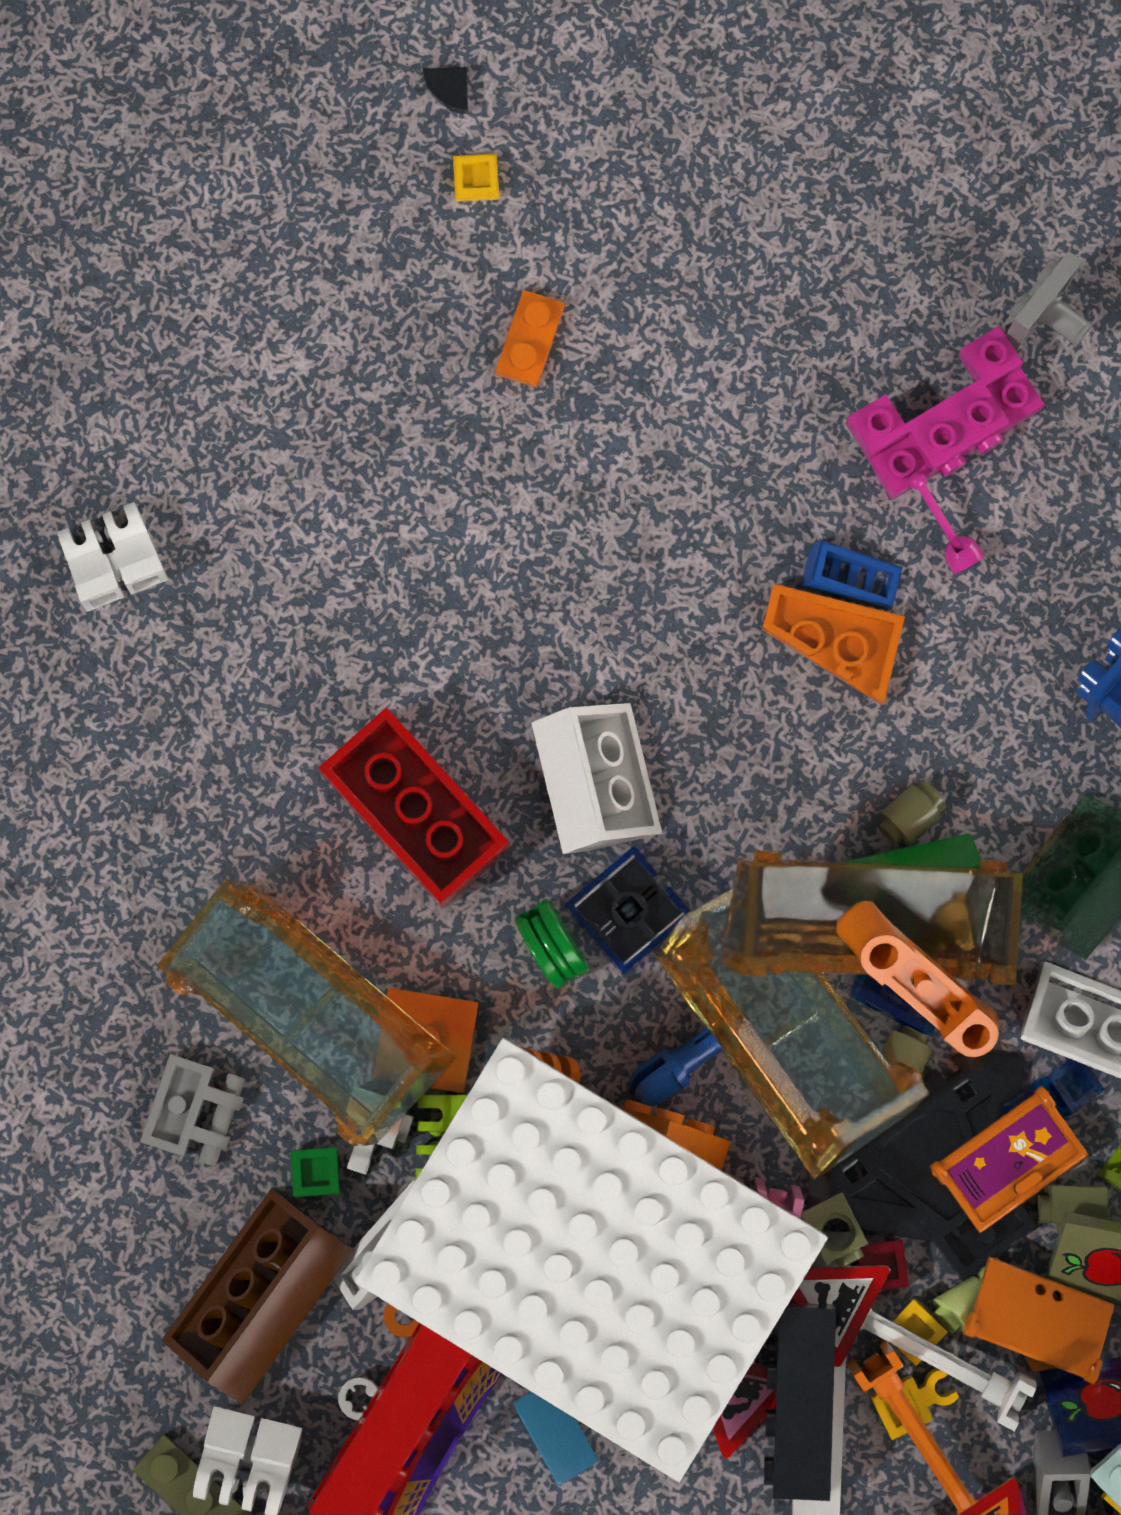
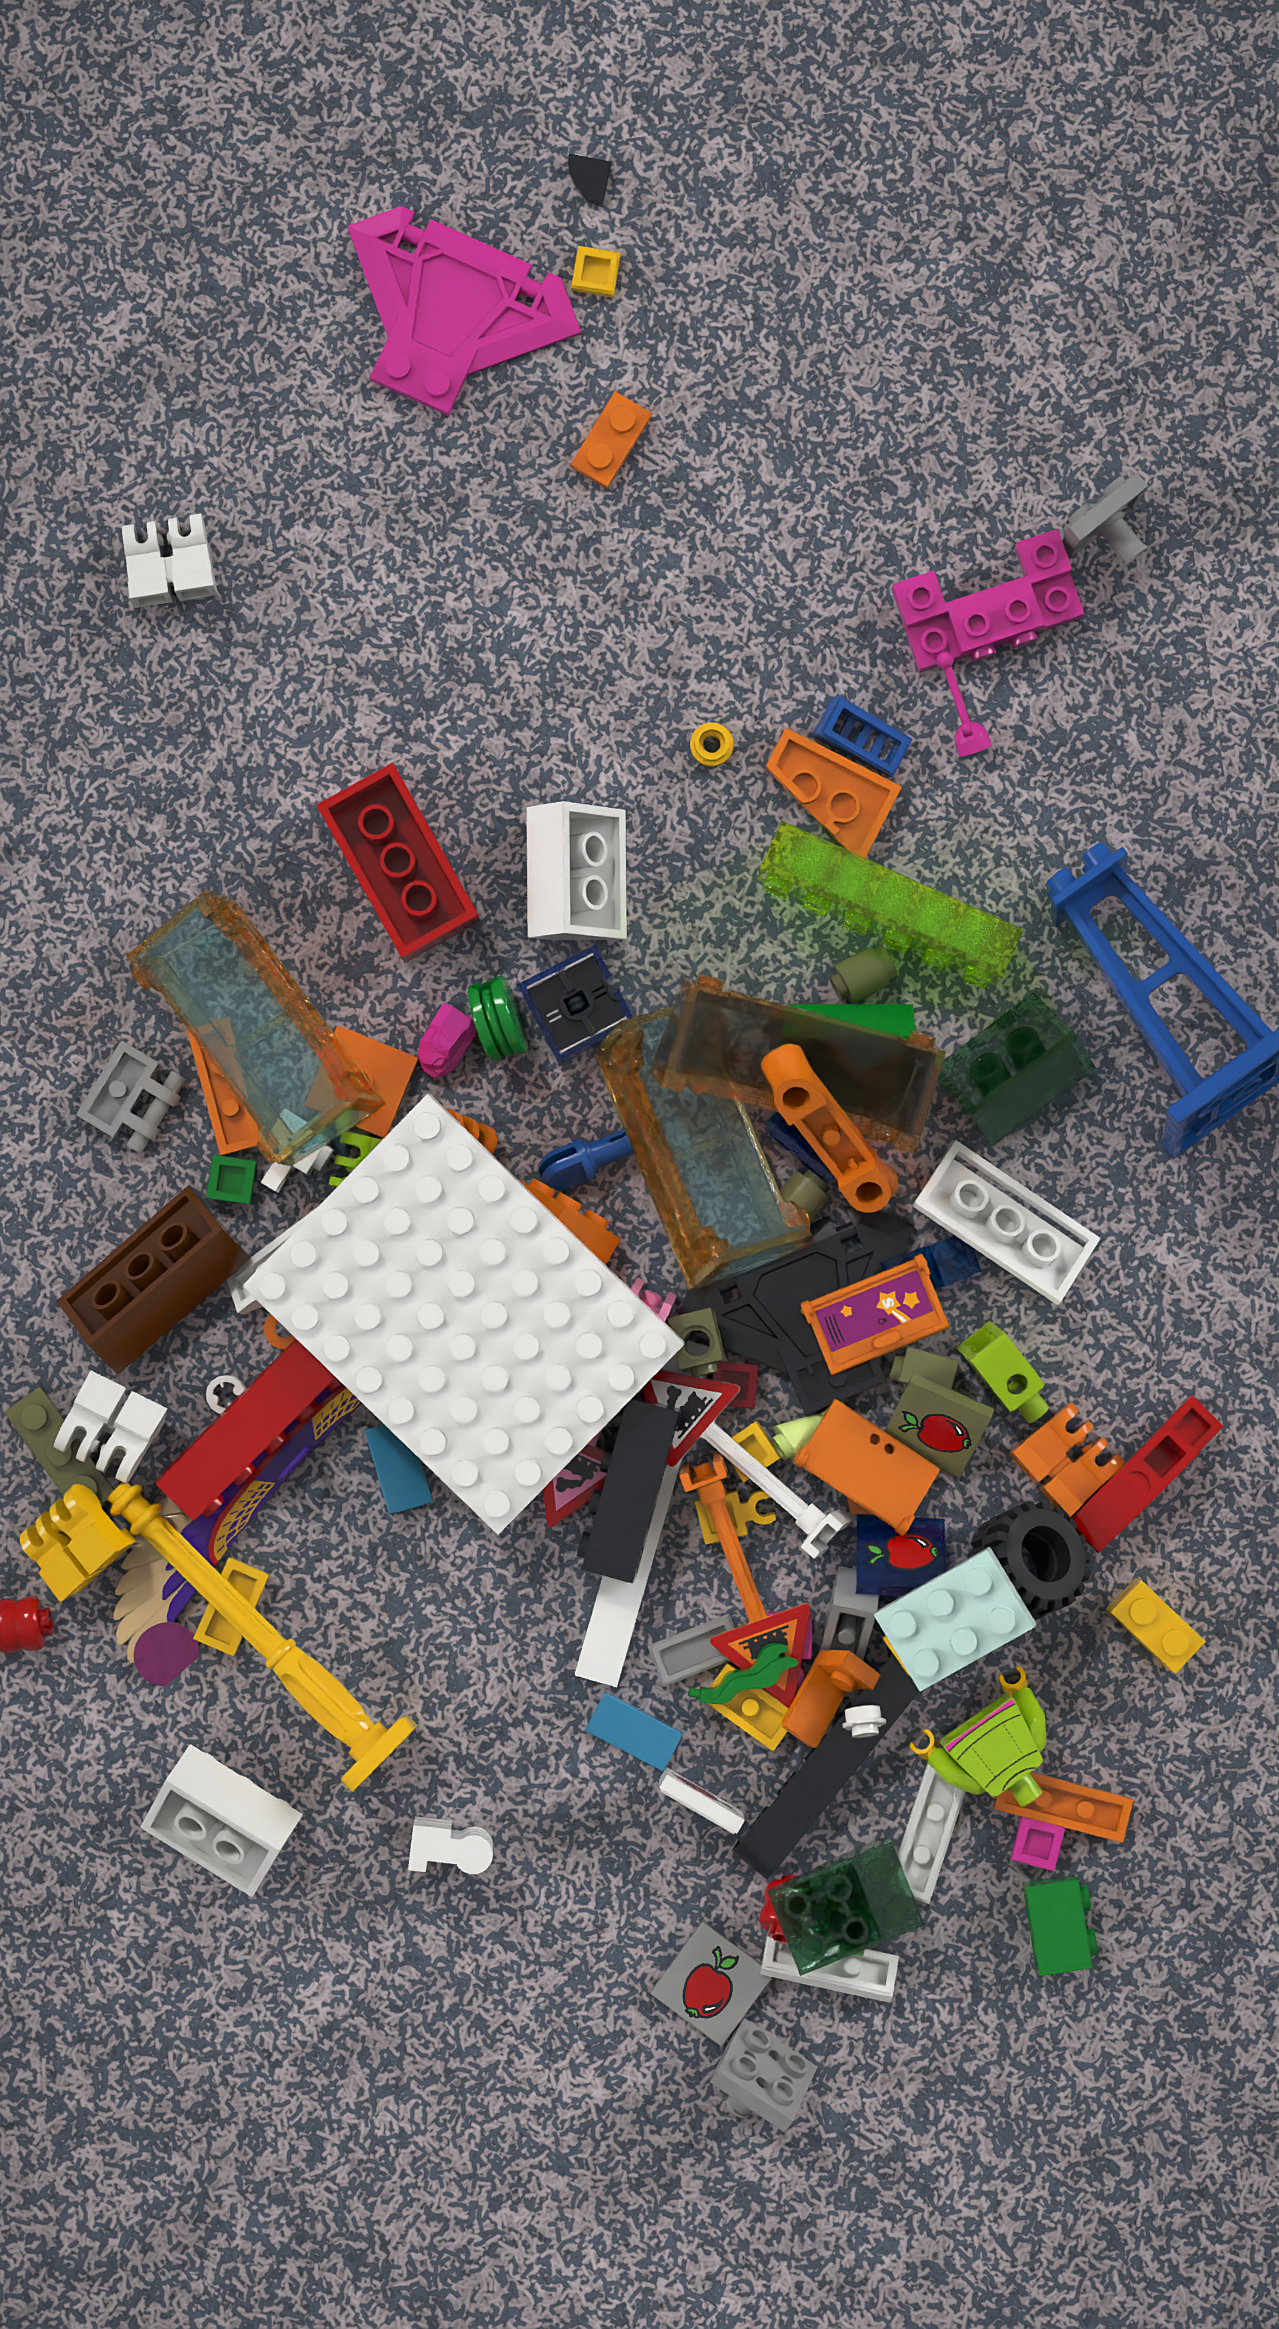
camera: 15 degrees right, 5 degrees up
(299, 1108) = (230, 1120): none -> orange plate
(340, 243) = (451, 306): none -> dark pink plate
(504, 979) = (446, 1041): none -> dark pink rock
(707, 604) = (721, 734): none -> yellow plate
(923, 738) = (889, 905): none -> clear neon green brick

